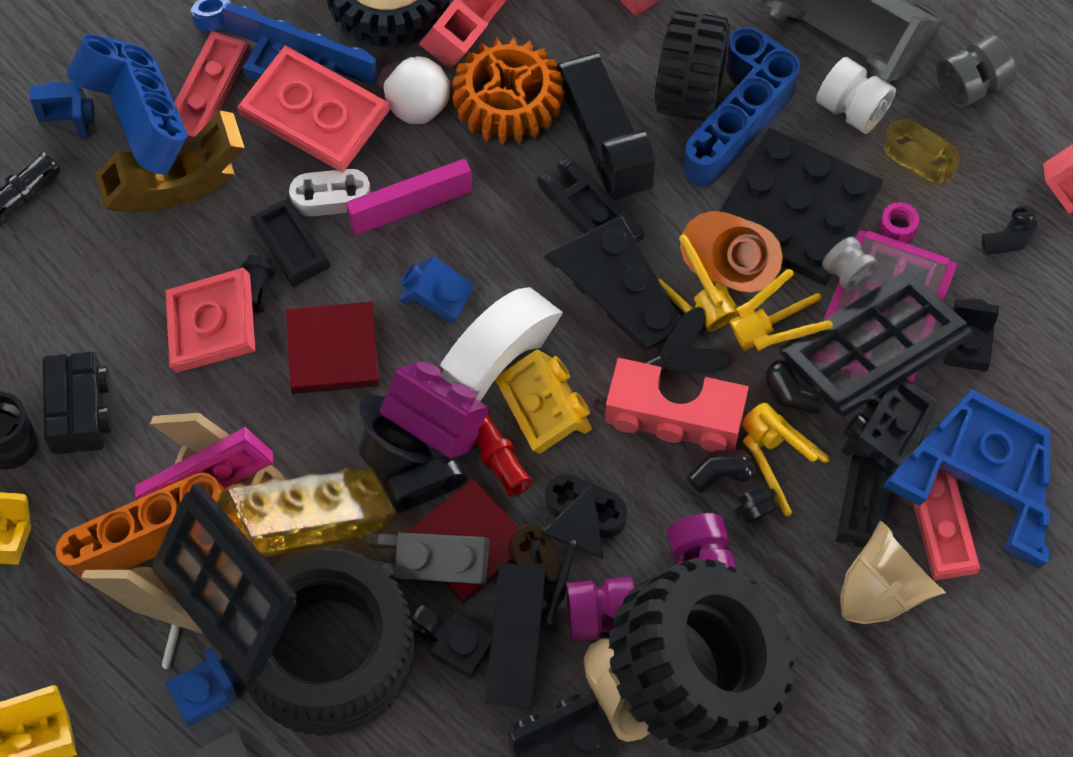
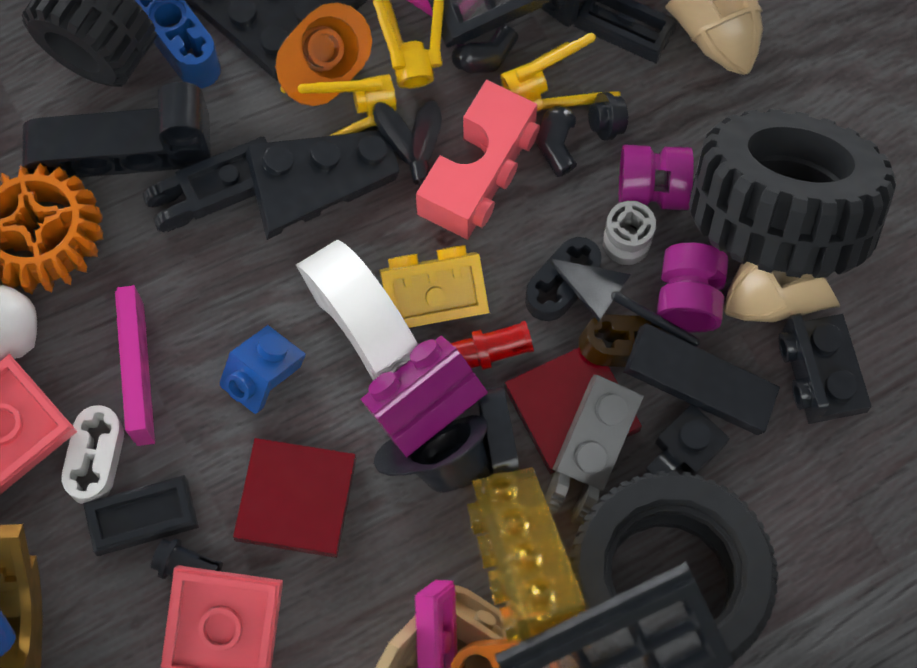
camera: 75 degrees left, 5 degrees up
(643, 556) = (625, 243): none -> light grey wheel

